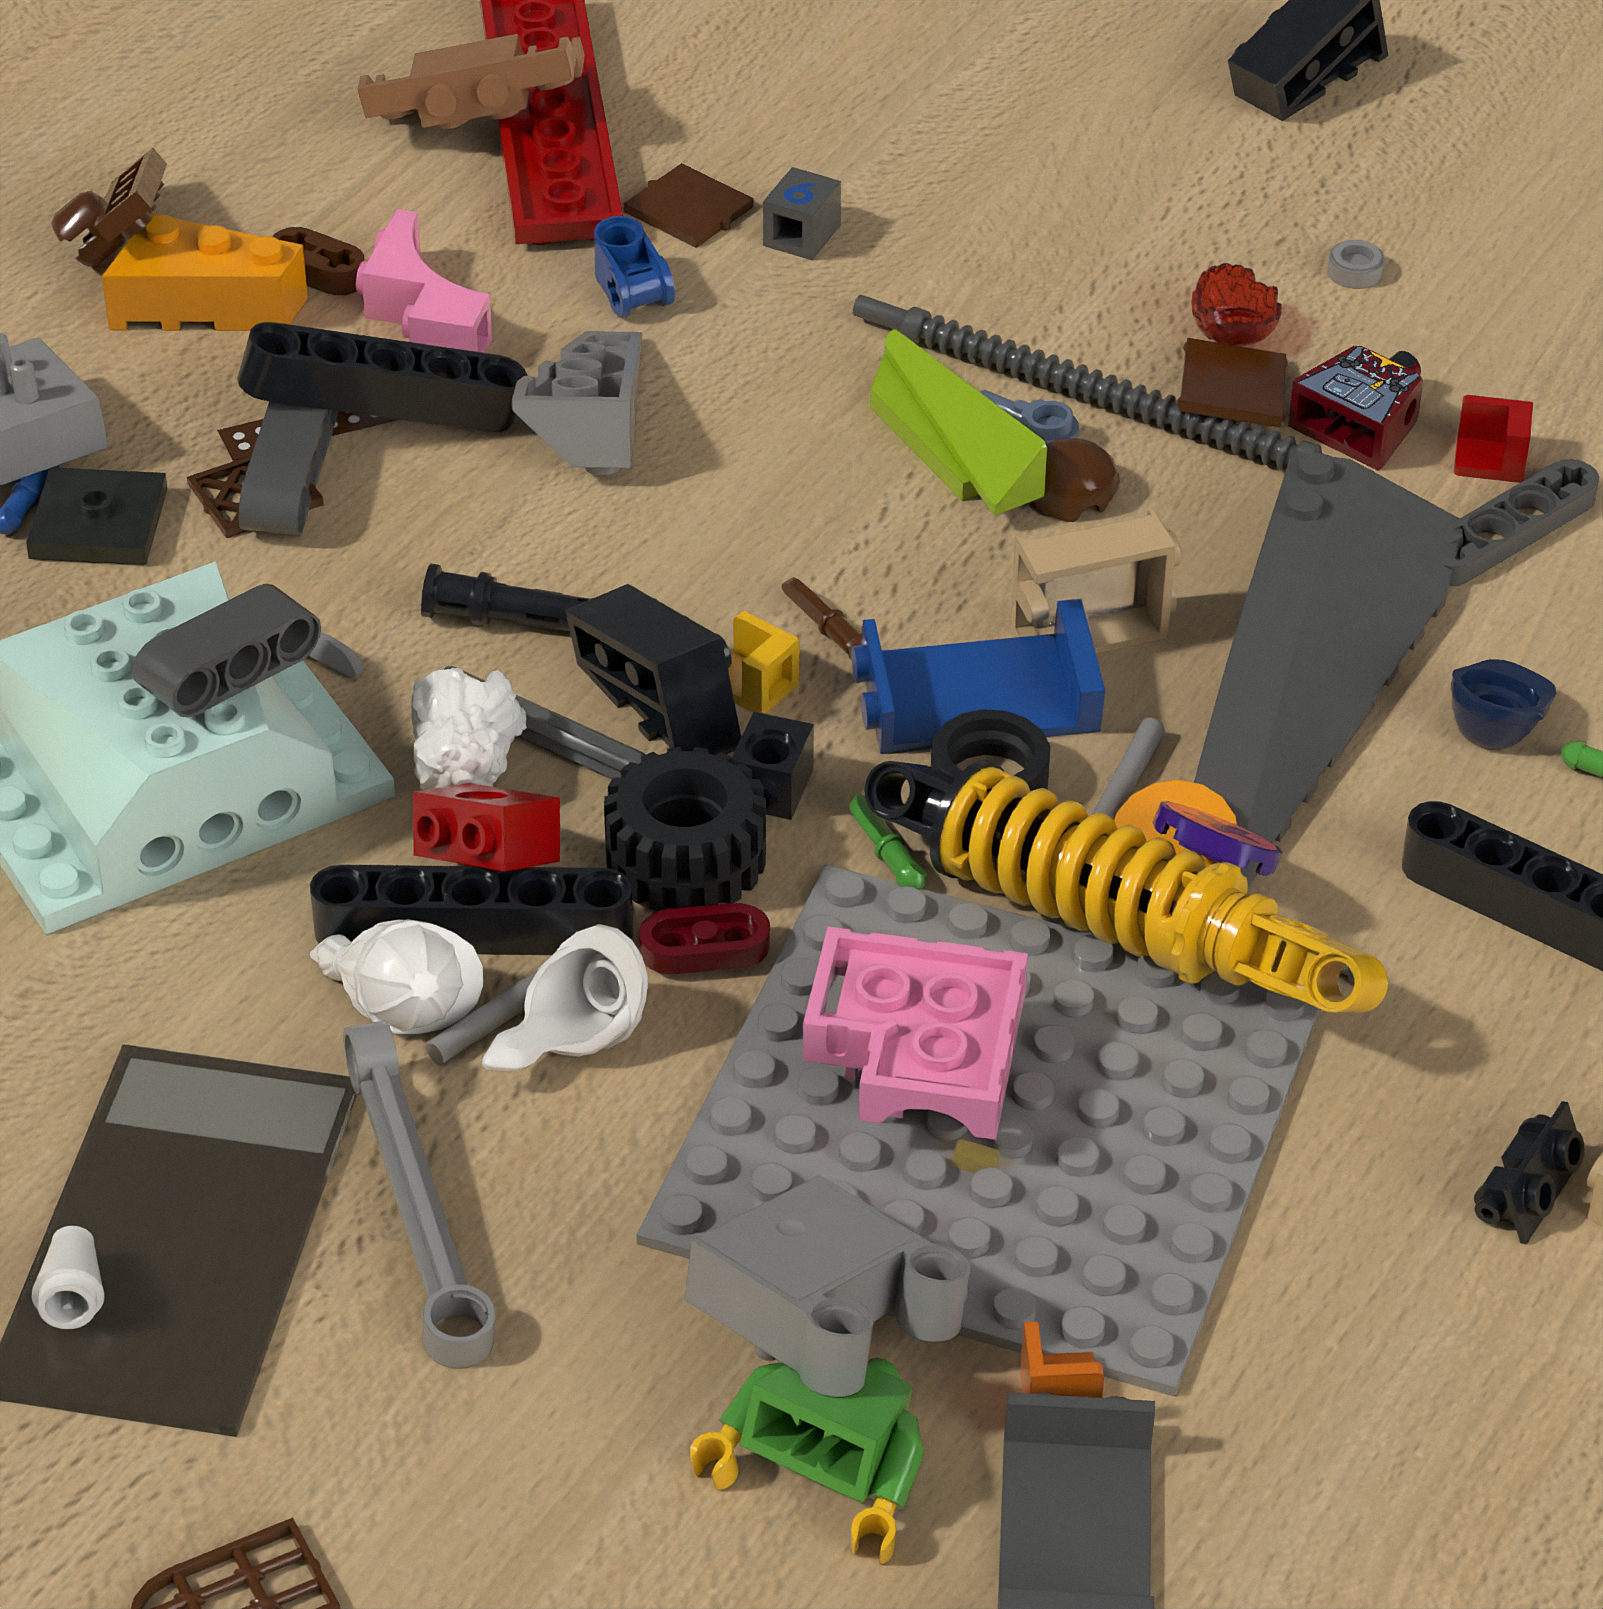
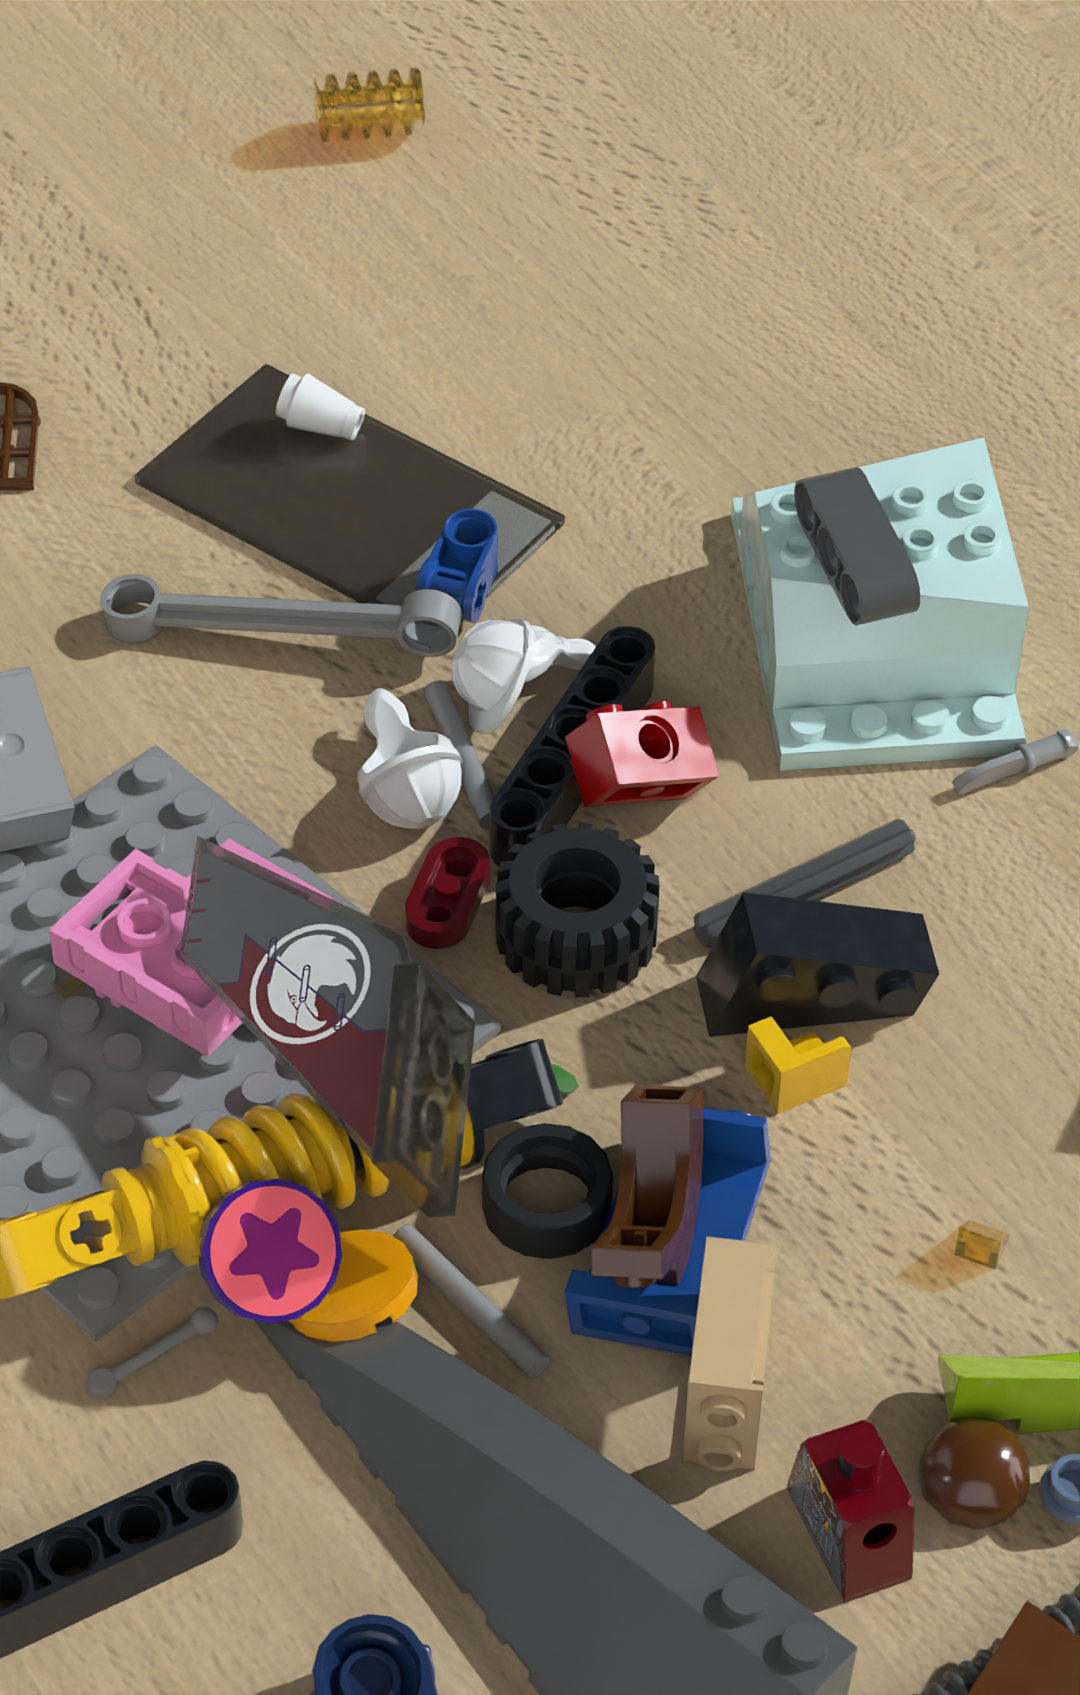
camera: 115 degrees right, 5 degrees up
(270, 1062) = (463, 561): none -> blue piece
(463, 728) = (788, 792): white hair -> none
(486, 599) = (1001, 893): black pin -> none
(780, 757) = (638, 1015): black brick -> none
(830, 622) = (854, 1158): reddish brown piece -> none
(854, 531) = (980, 1243): none -> clear yellow piece
(985, 829) = (340, 1014): none -> piece
(1005, 671) = (657, 1188): none -> reddish brown arch
(1175, 483) = (850, 1488): none -> dark red torso

